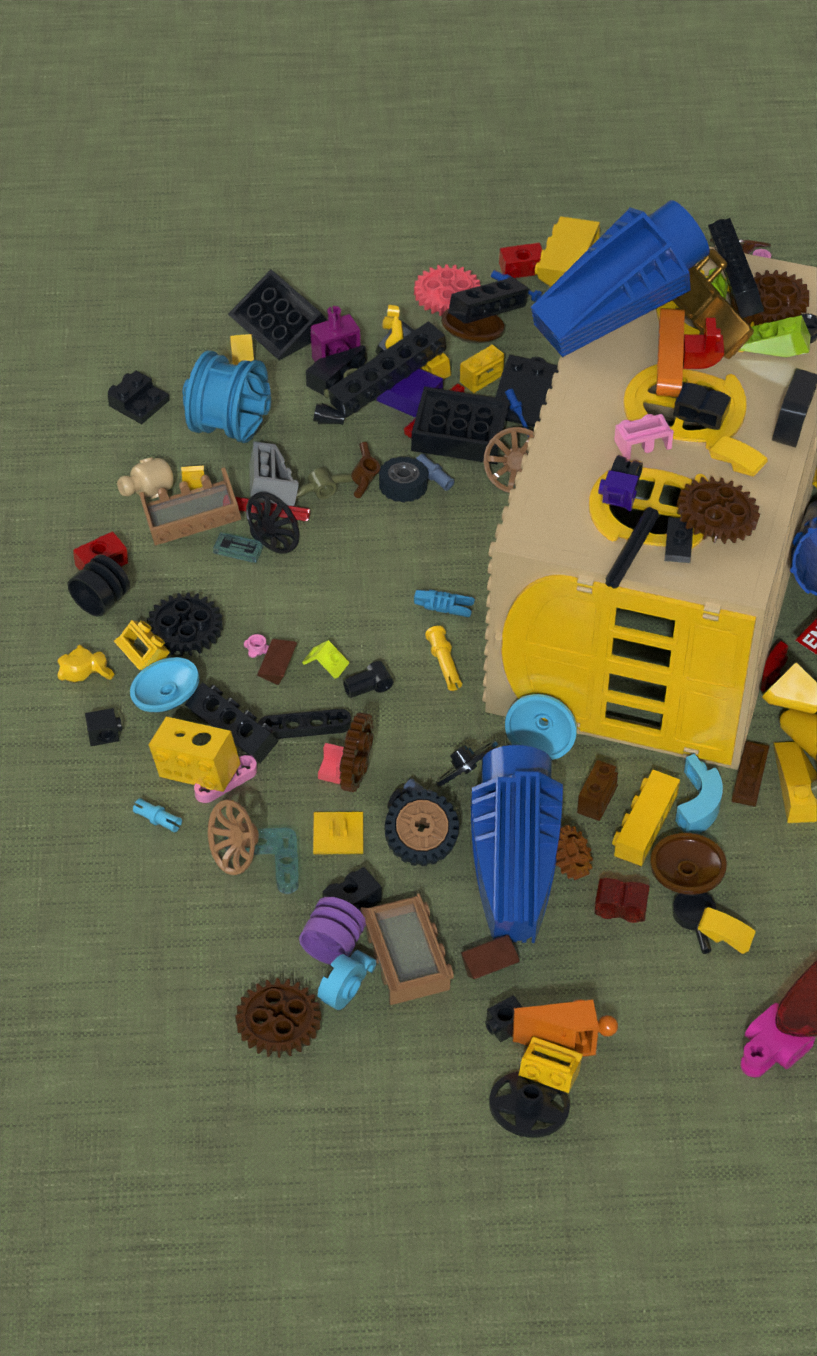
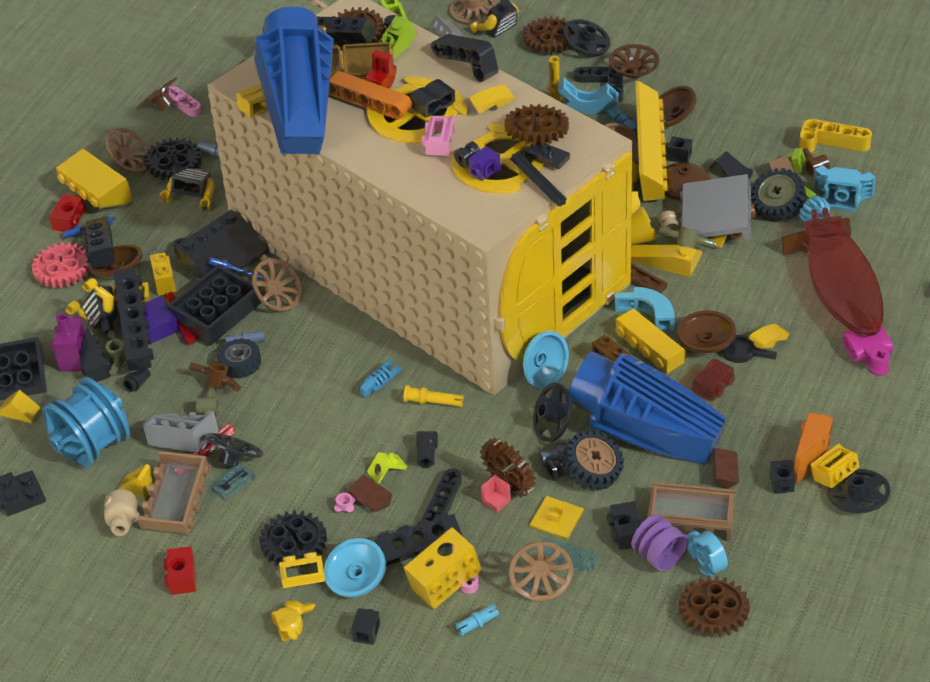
camera: 60 degrees left, 5 degrees down
(98, 585) = (220, 576): black wheel -> none

